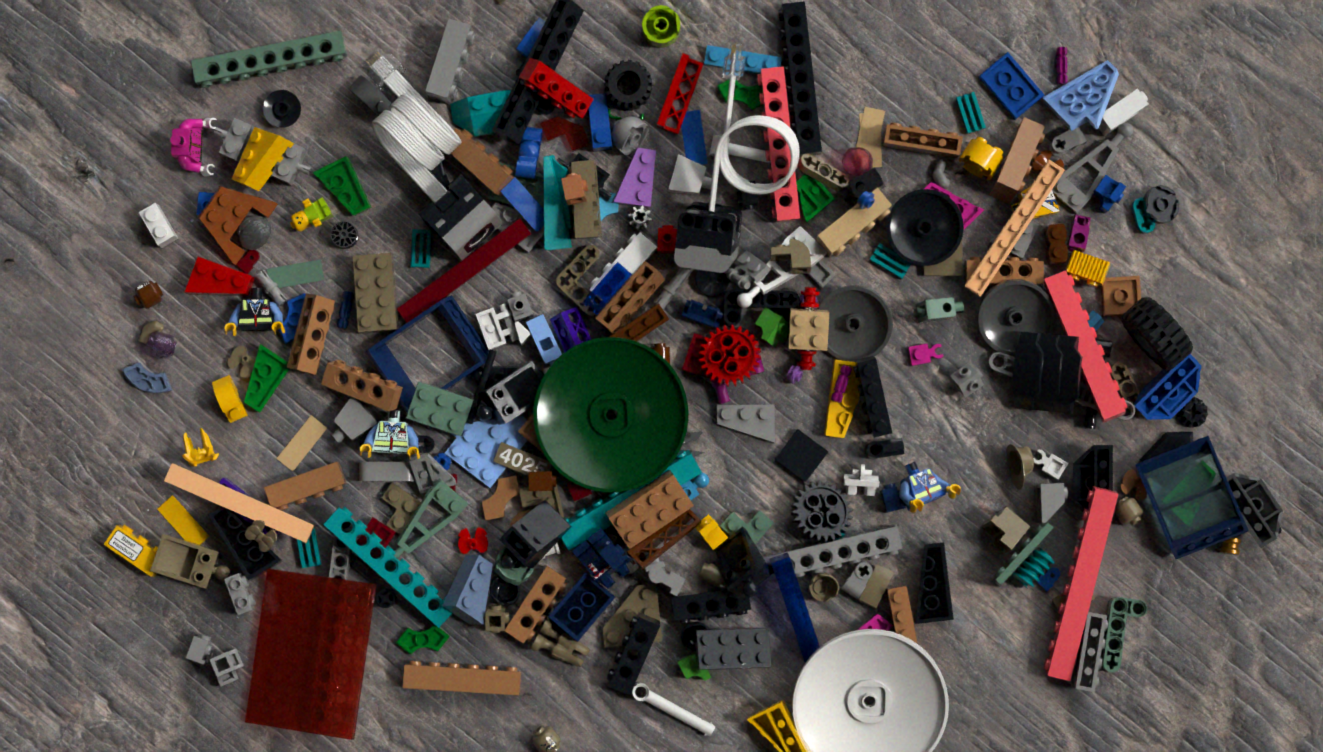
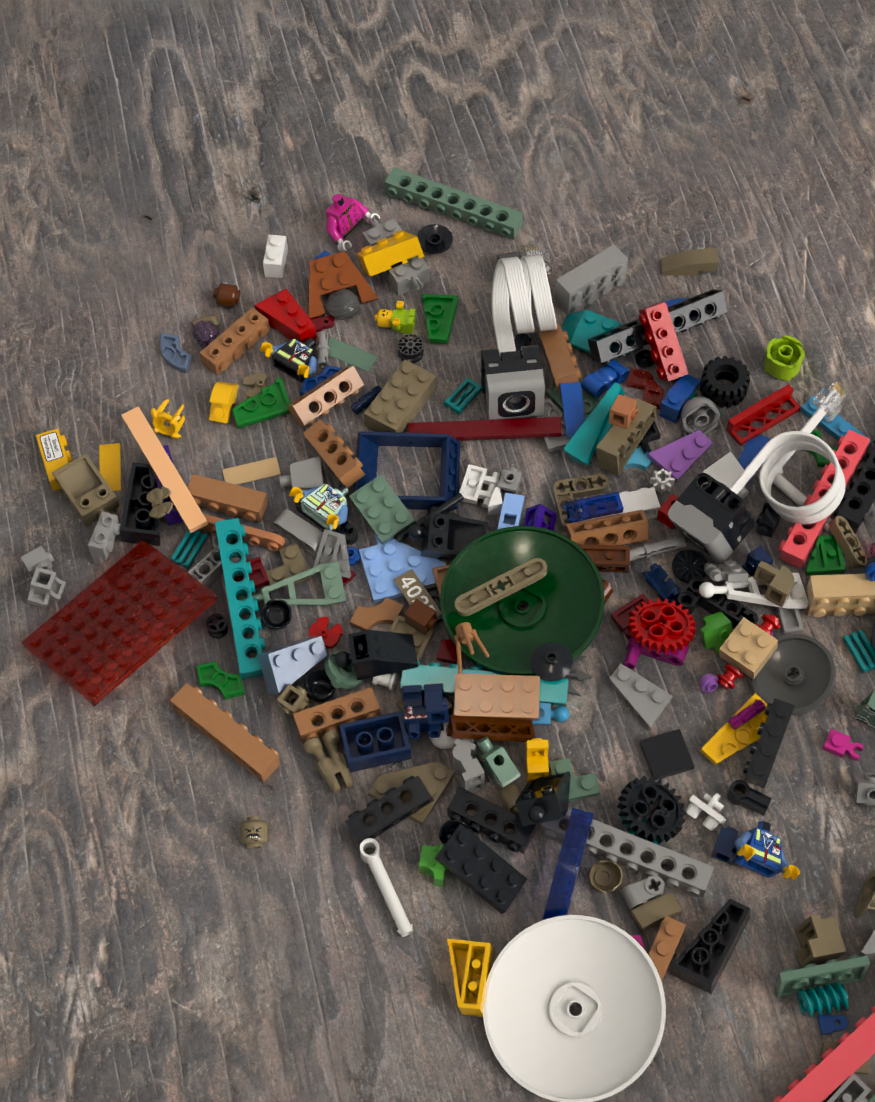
camera: 40 degrees right, 25 degrees down
(192, 334) = (234, 341): none -> medium nougat brick
(354, 502) = (253, 536): none -> nougat piece
(425, 556) = (276, 614): none -> black hair
(591, 478) = (465, 634): none -> medium nougat plant
(598, 401) = (518, 577): none -> dark tan piece
(681, 448) = (551, 670): none -> black dish
(682, 560) = (496, 763): none -> sand green torso
(764, 241) = (755, 558): none -> dark blue brick

